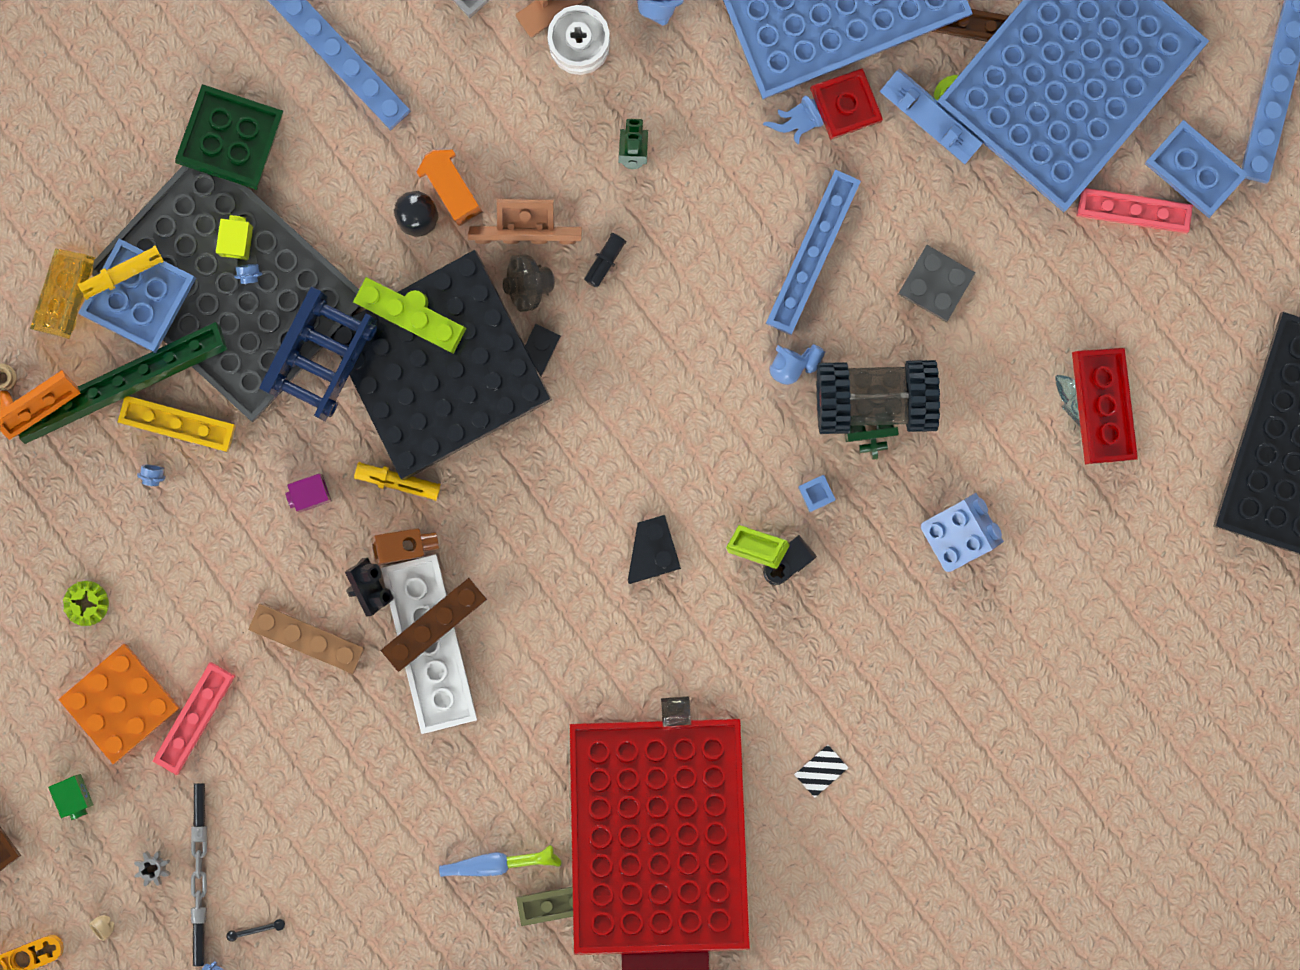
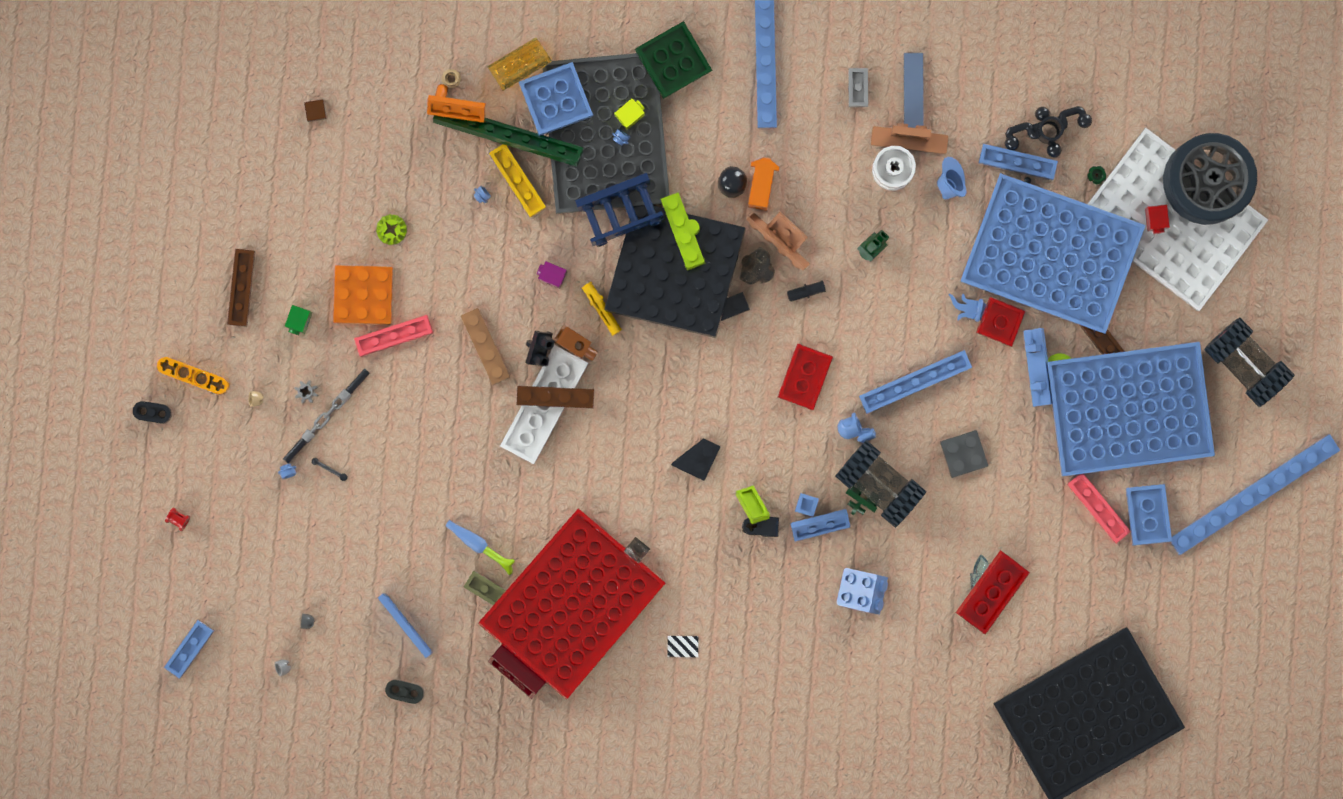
camera: 50 degrees right, 0 degrees up
(120, 272) = (557, 80): yellow pin -> none
(688, 355) = (805, 377): none -> red tile
(851, 502) = (820, 525): none -> medium blue plate

